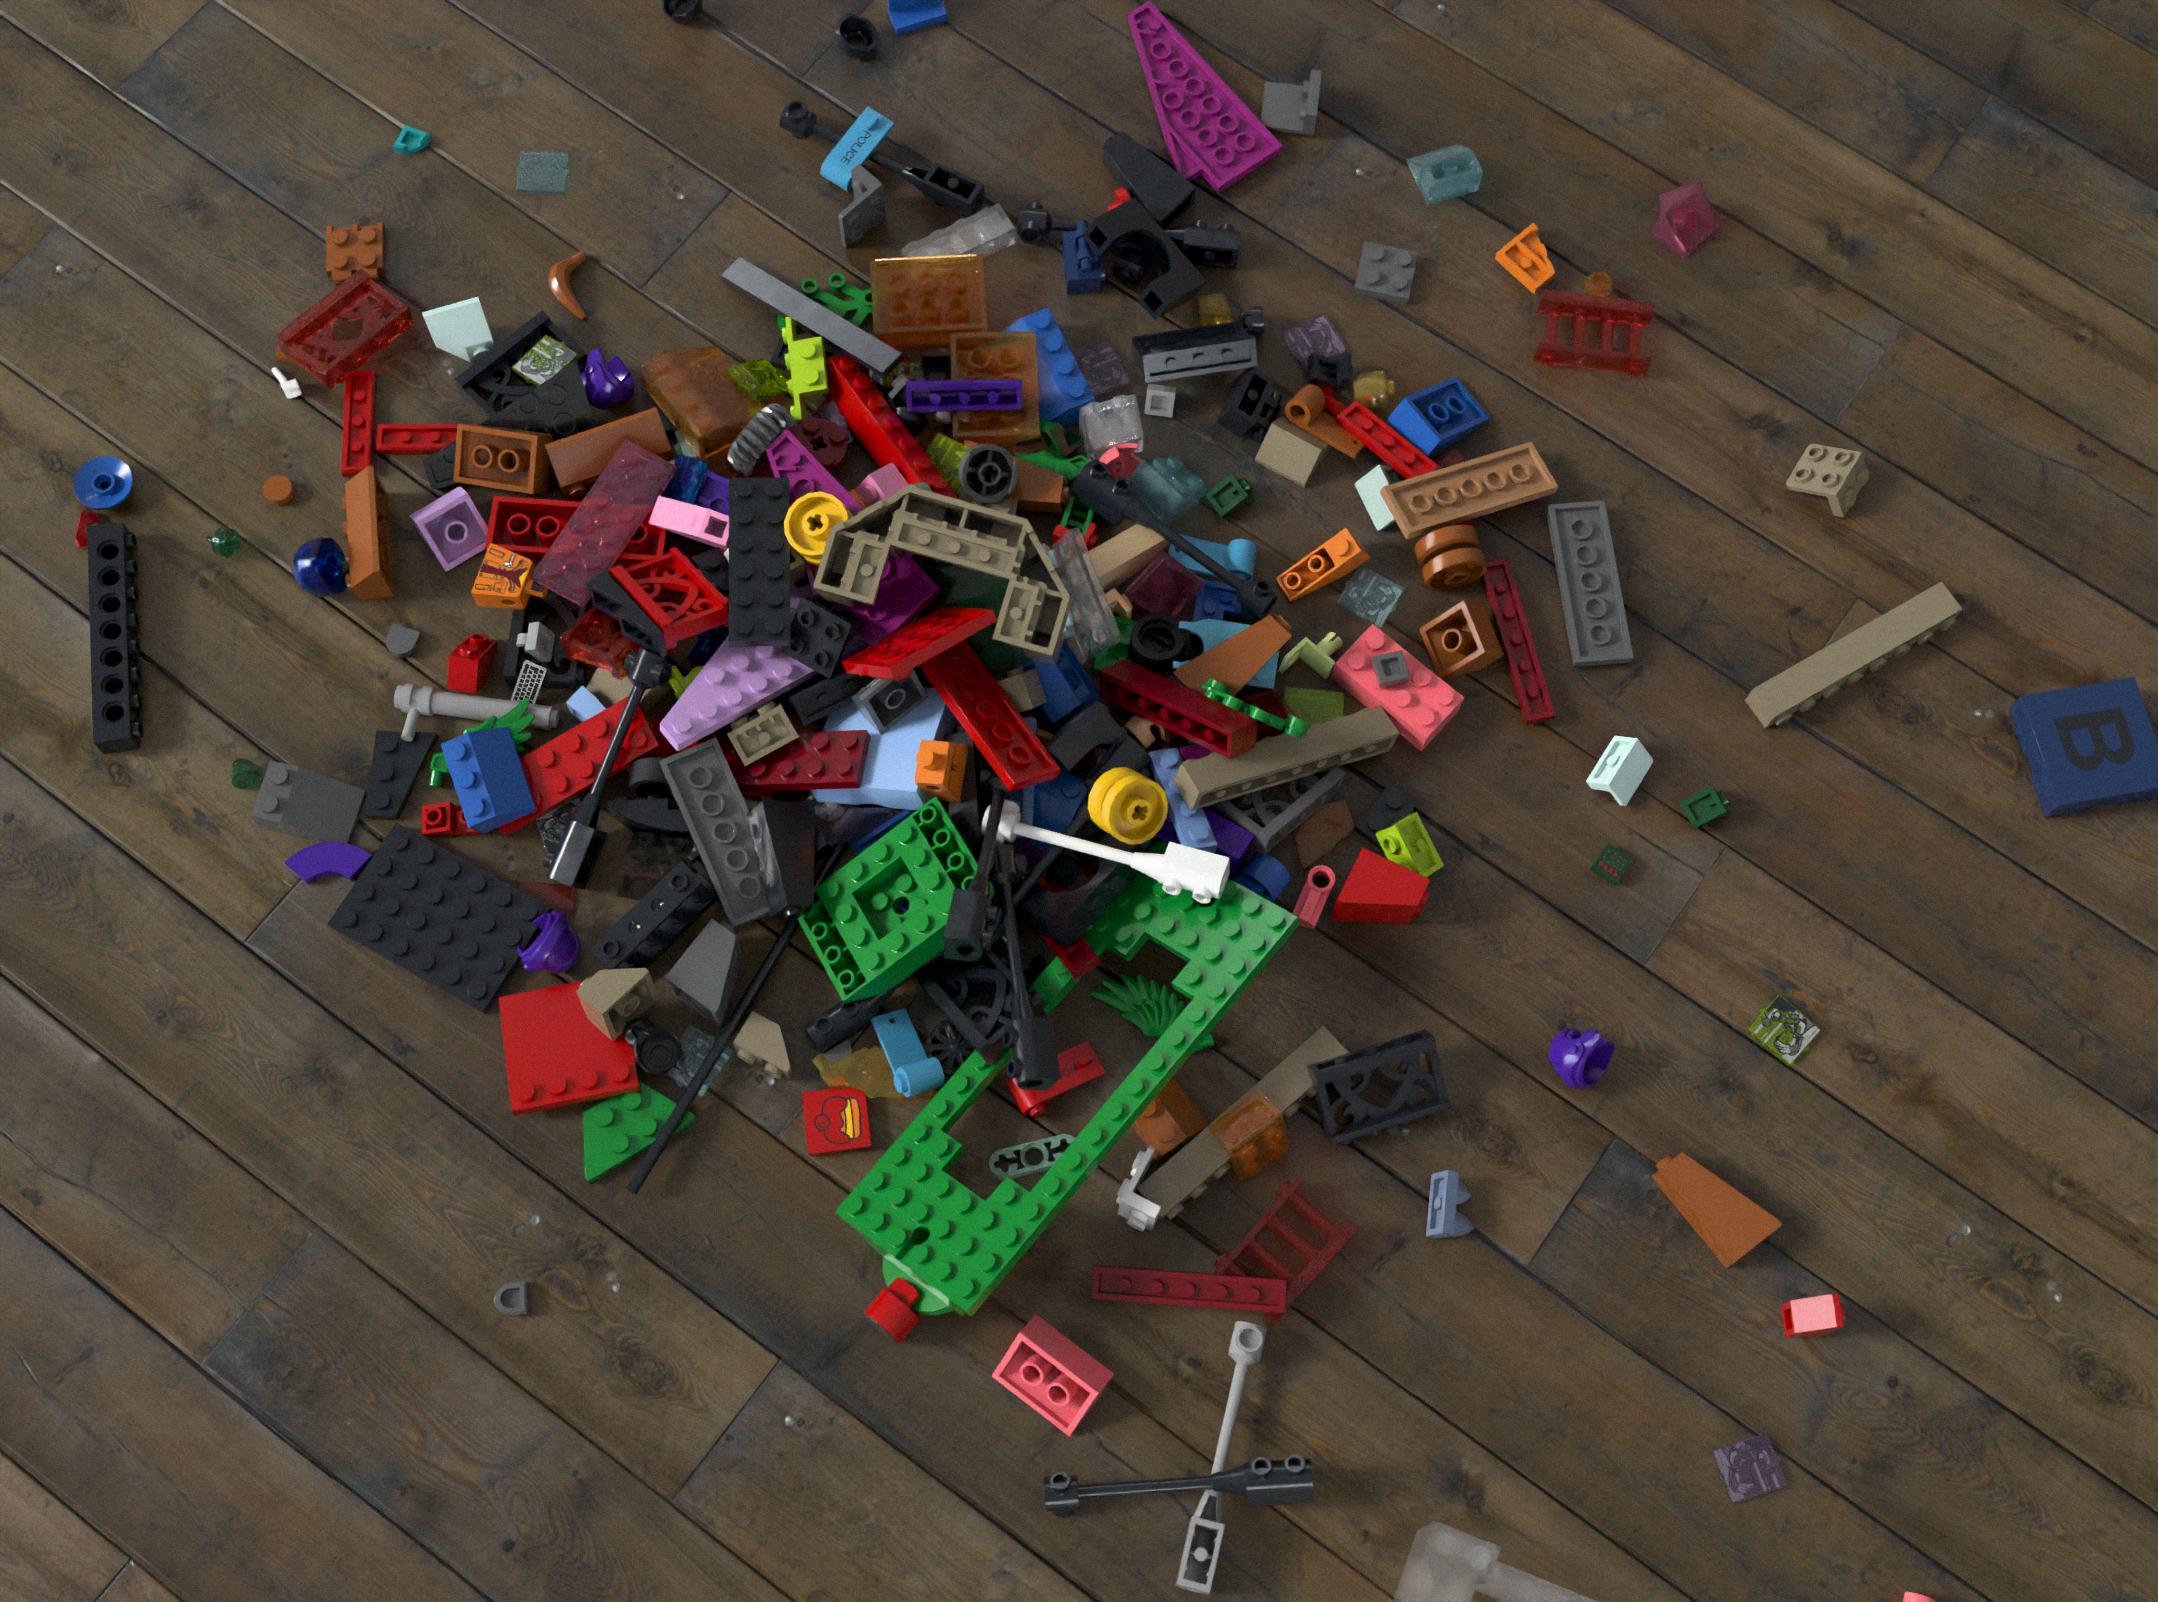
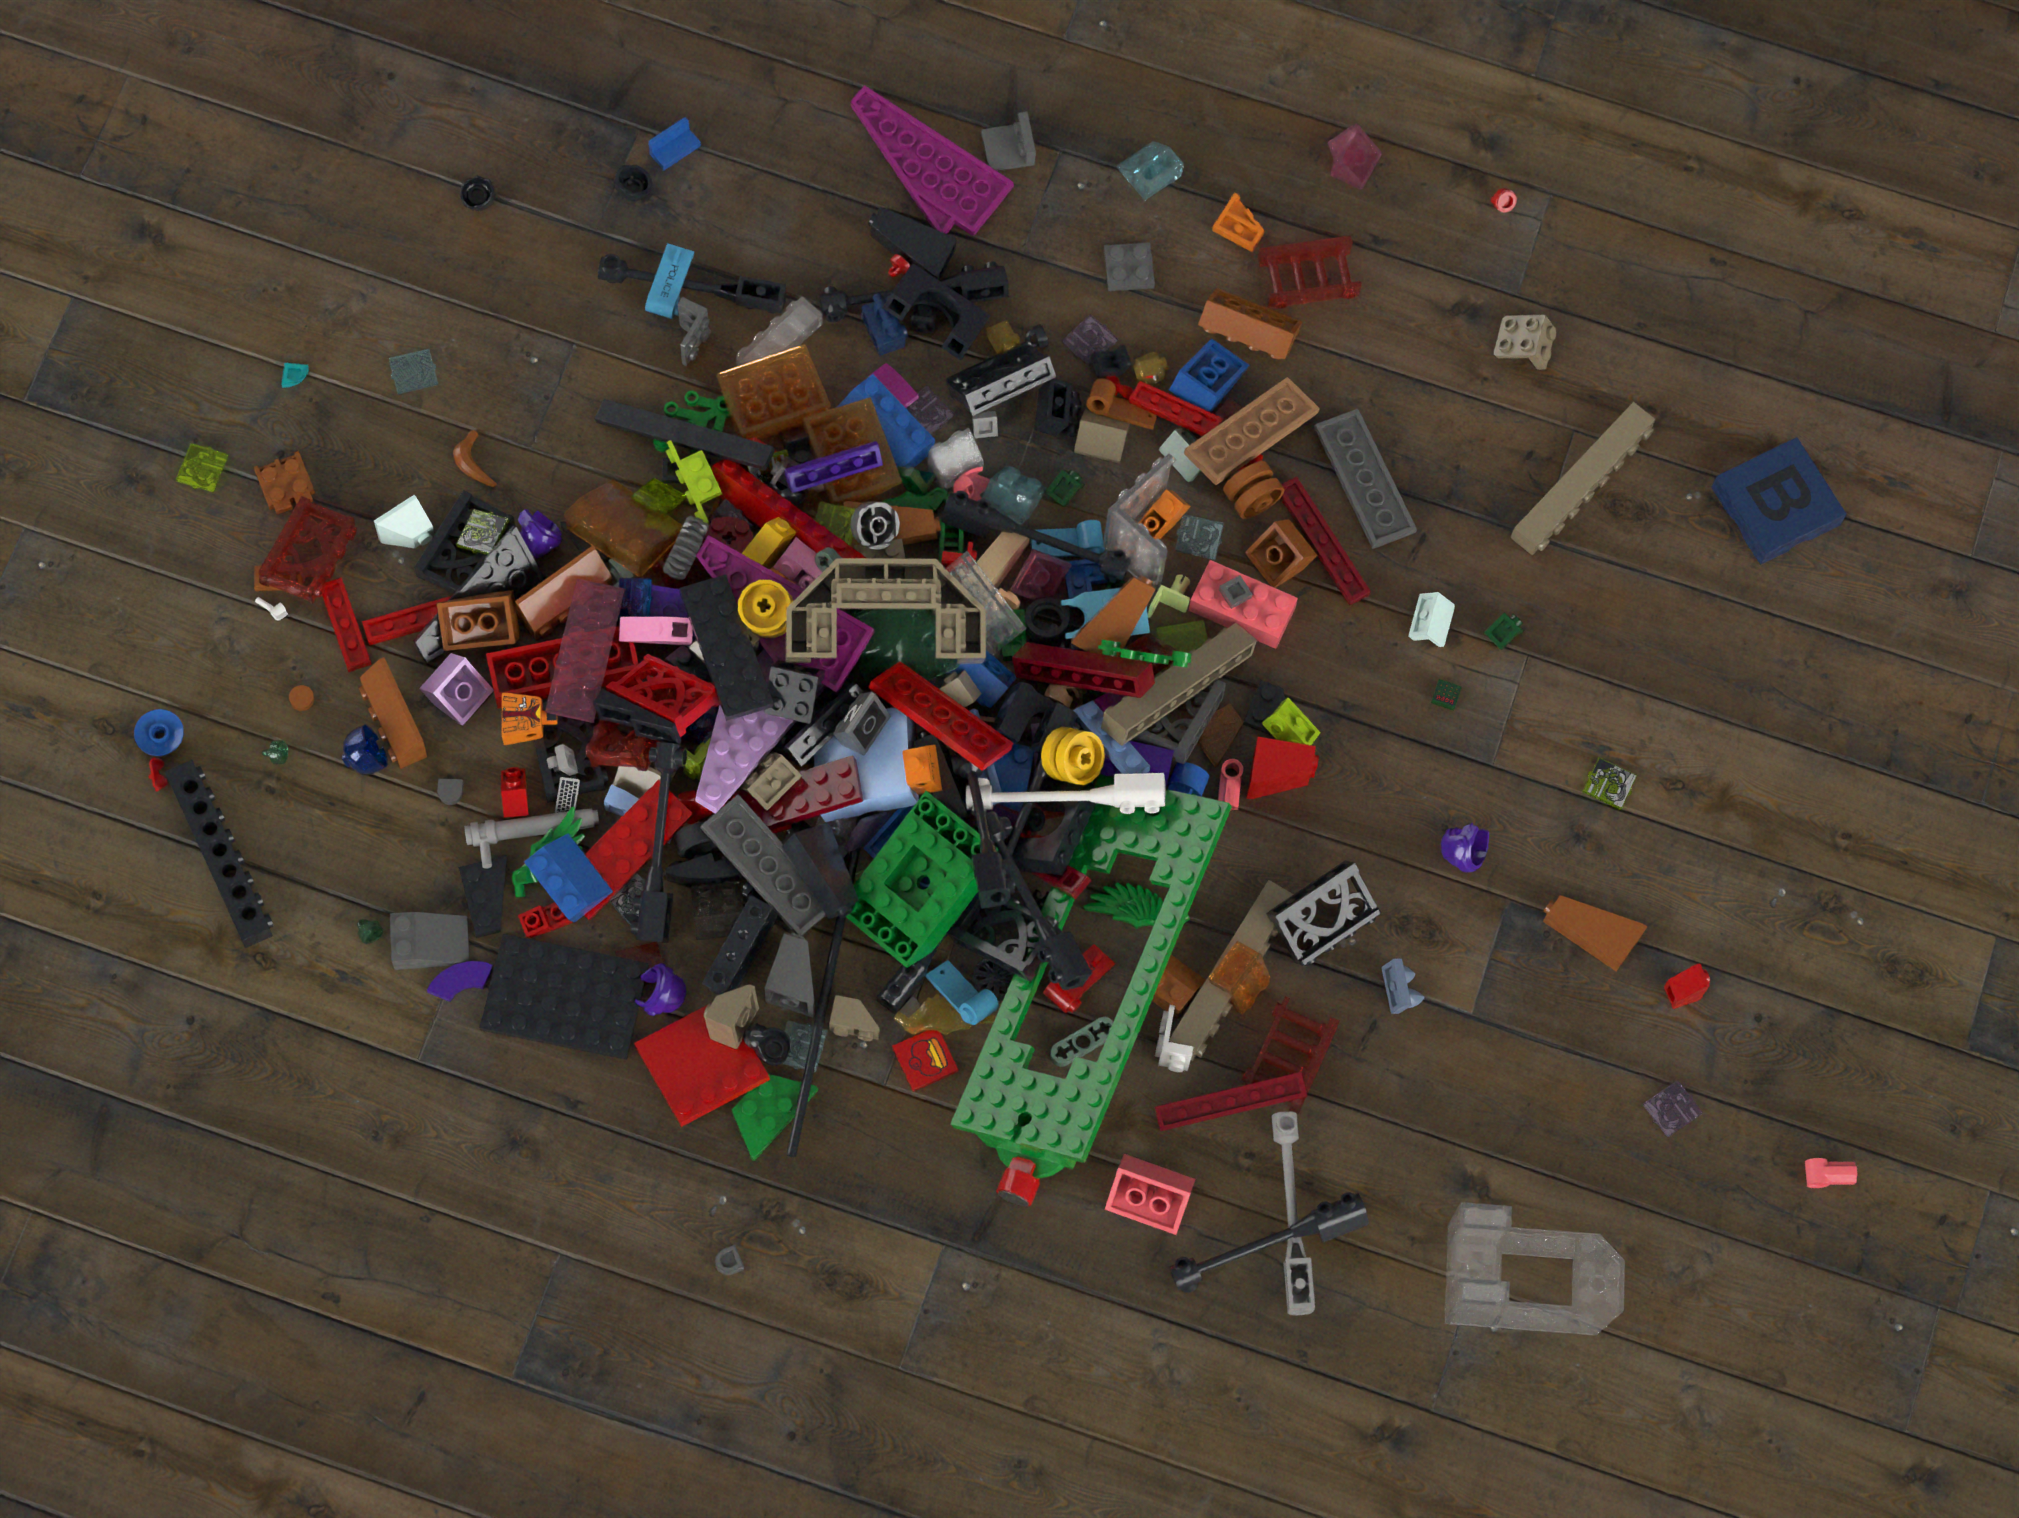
camera: 20 degrees left, 0 degrees up
(273, 212) = (202, 467): none -> clear neon green piece
(859, 460) = (770, 542): none -> yellow slope
(918, 642) = (876, 676): red plate -> none
(1073, 330) = (896, 385): none -> magenta slope
(1291, 539) = (1125, 533): none -> clear bracket
(1505, 371) = (1249, 323): none -> dark orange slope
(1598, 284) = (1301, 230): clear orange plate -> none
(1848, 313) = (1504, 200): none -> tile

